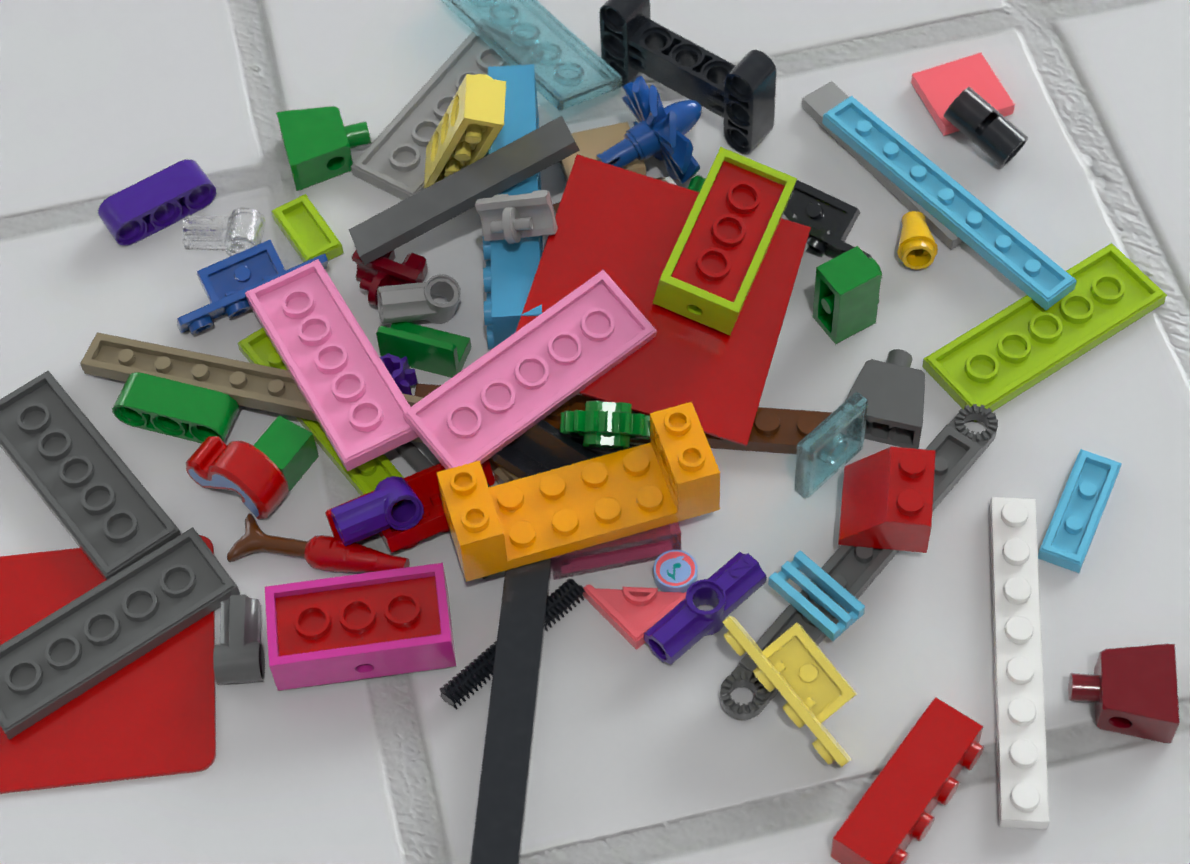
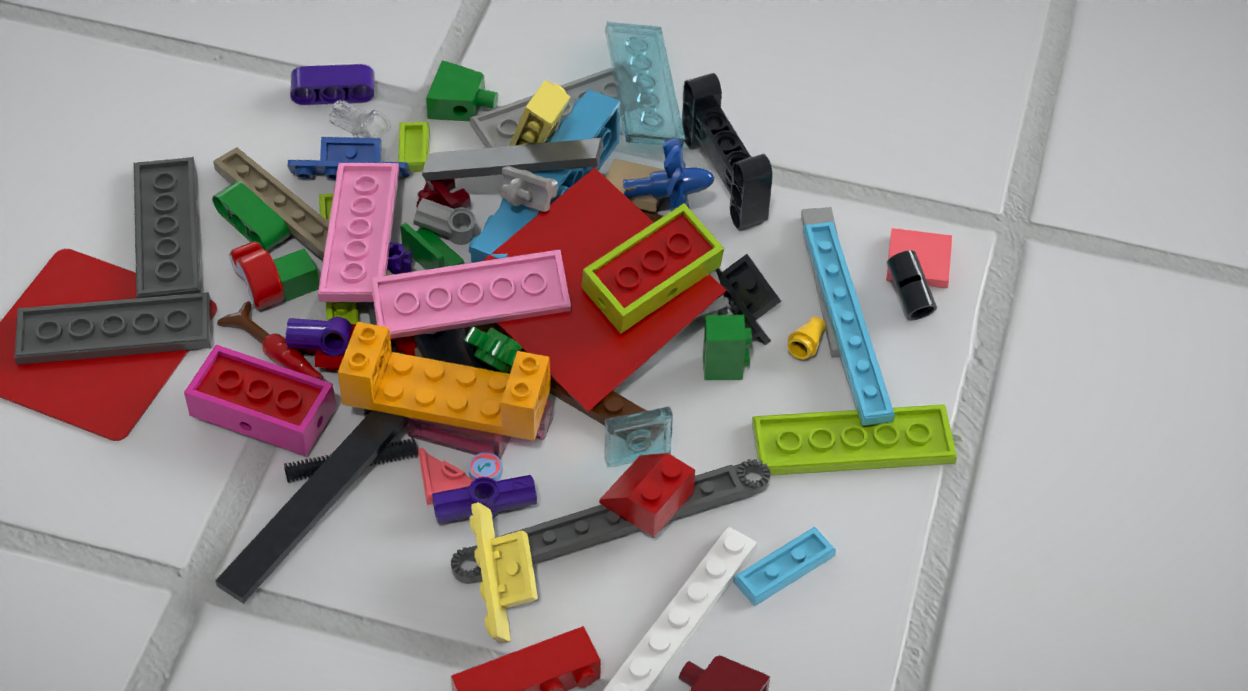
camera: 25 degrees right, 5 degrees down
(240, 651) = (174, 381): dark grey piece -> none
(827, 584) = (552, 503): medium azure tile -> none
(893, 399) = (706, 431): dark grey torso -> none

